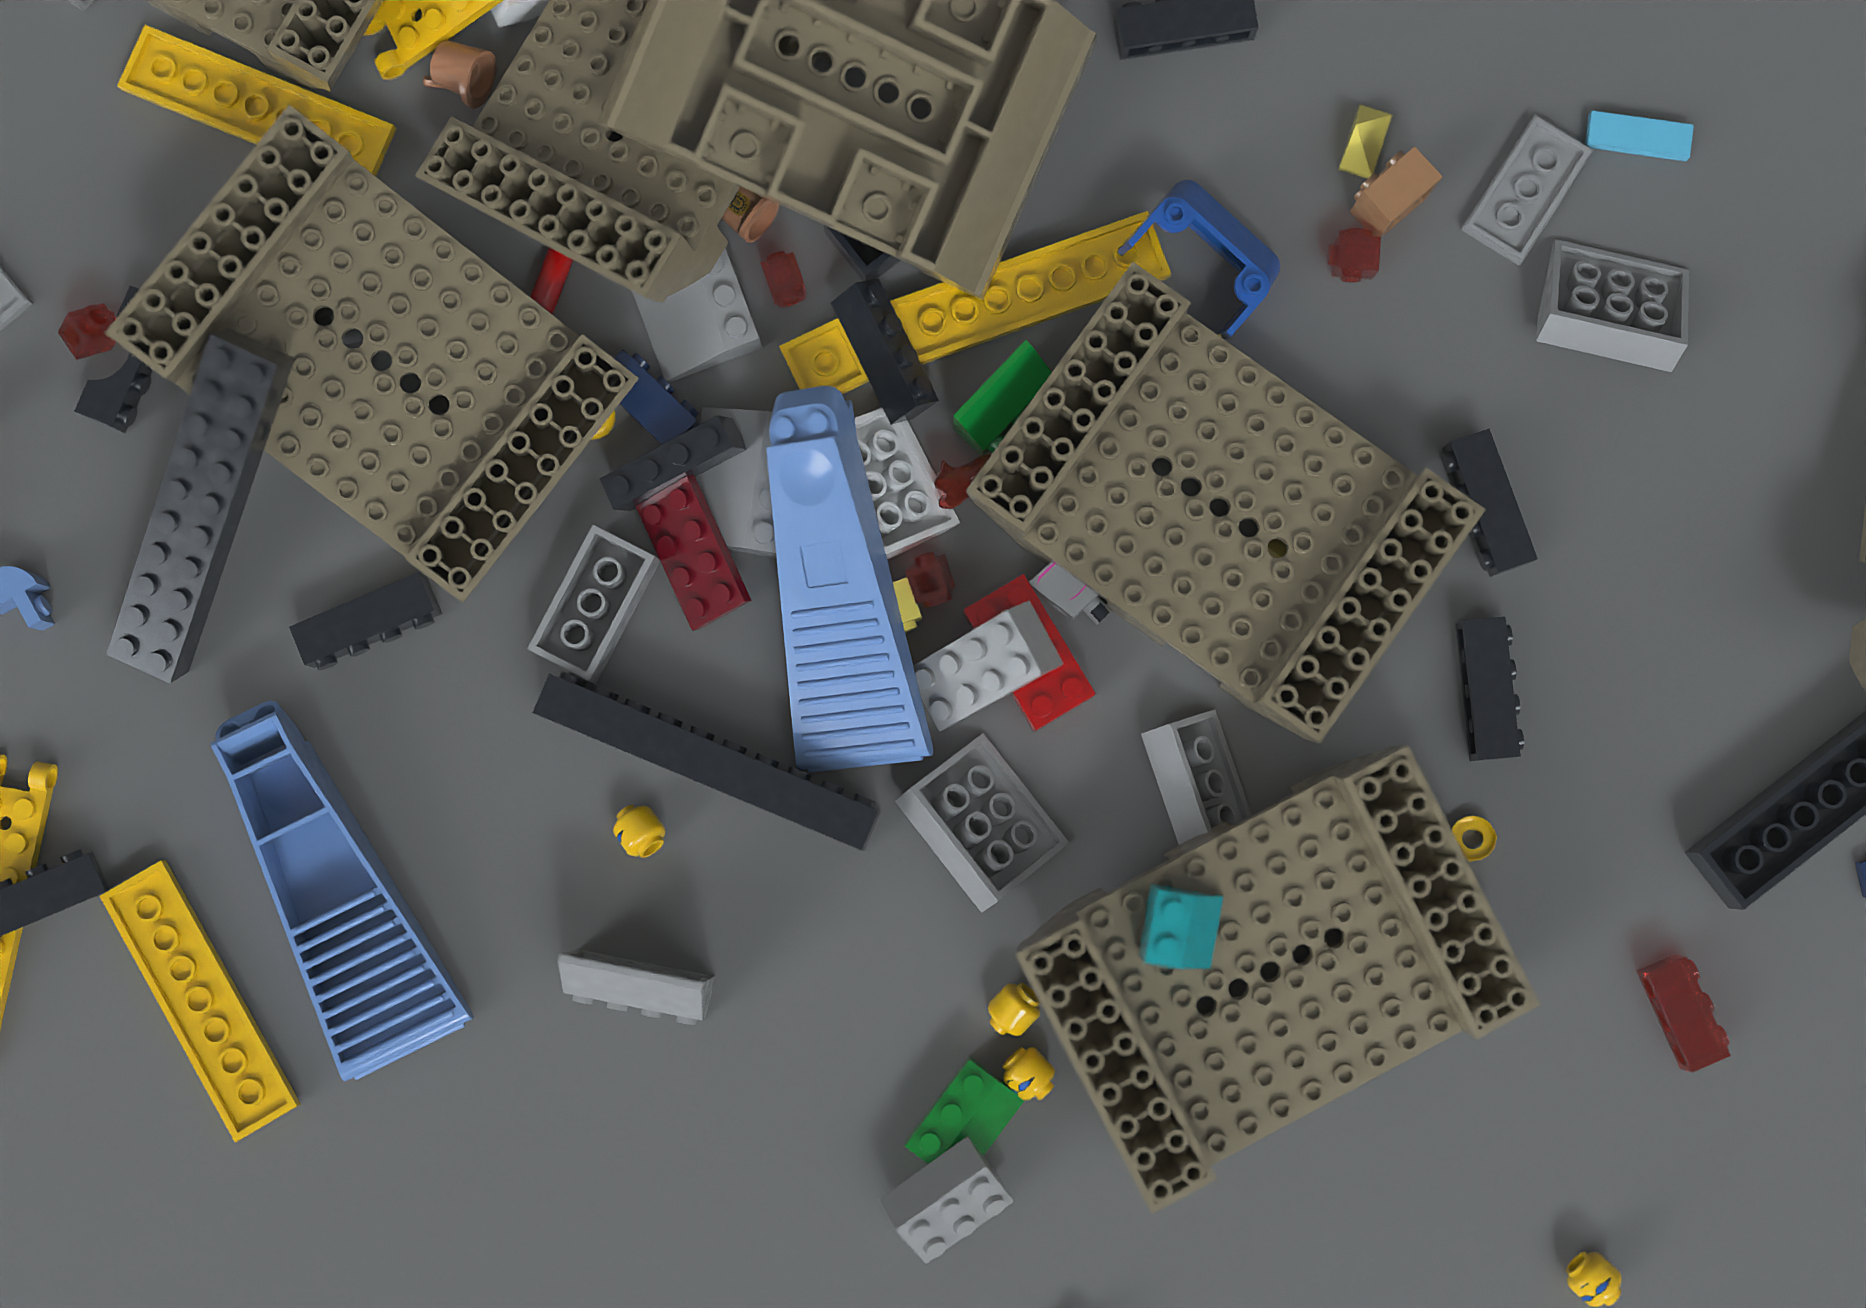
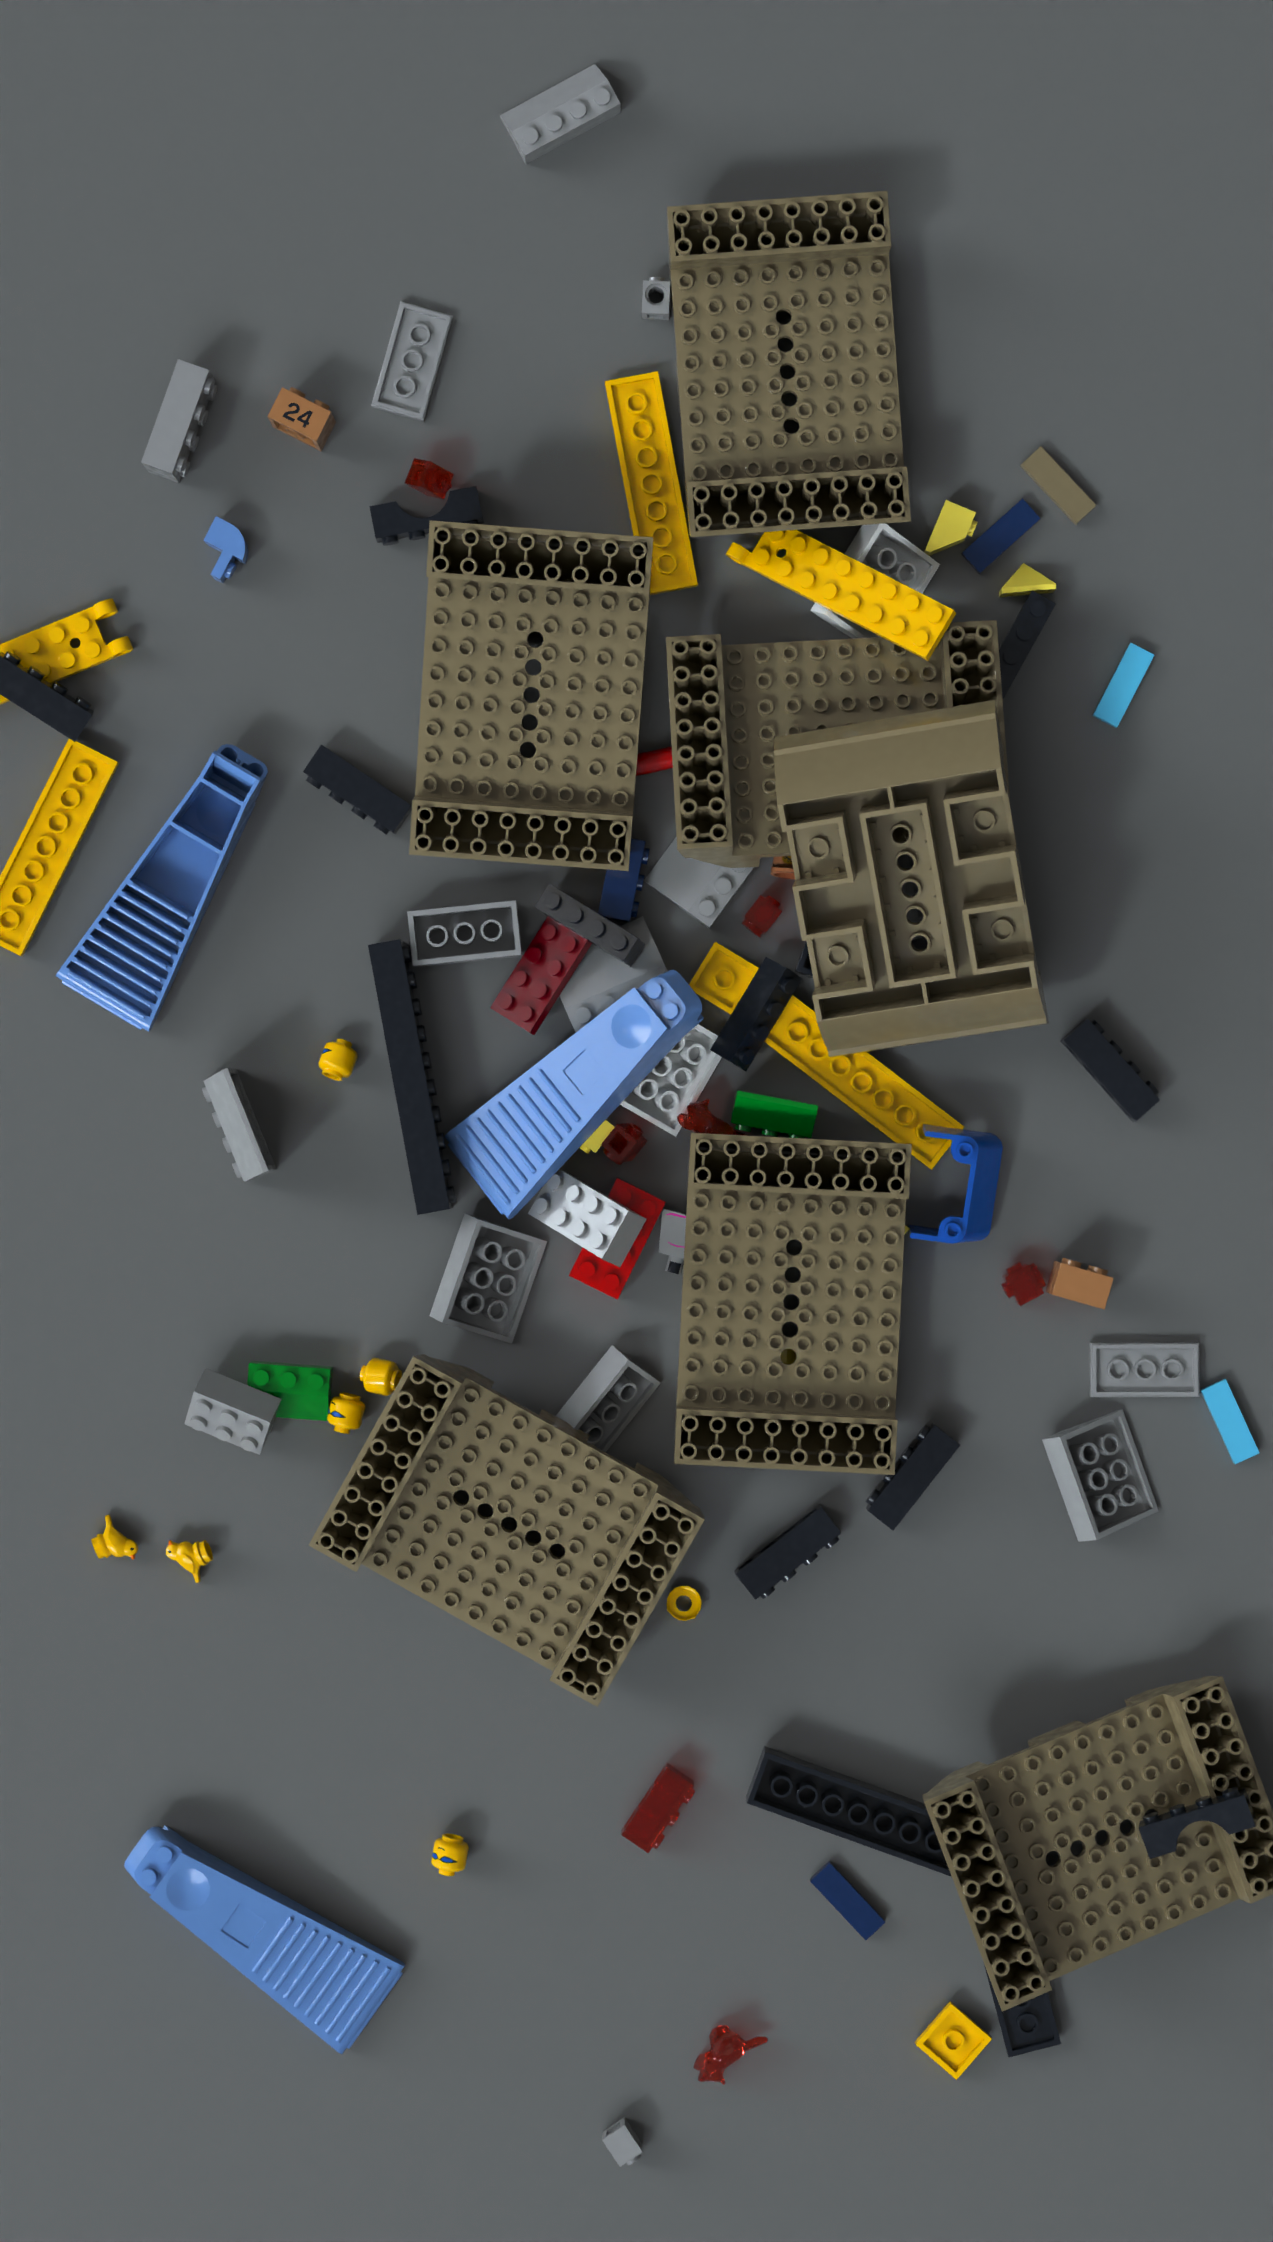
camera: 55 degrees right, 5 degrees up
(200, 504) = (360, 642): black brick -> none
(463, 71) = (763, 607): nougat hat -> none
(1180, 928) = (498, 1449): teal slope -> none
(1365, 141) = (1108, 1241): light yellow slope -> none

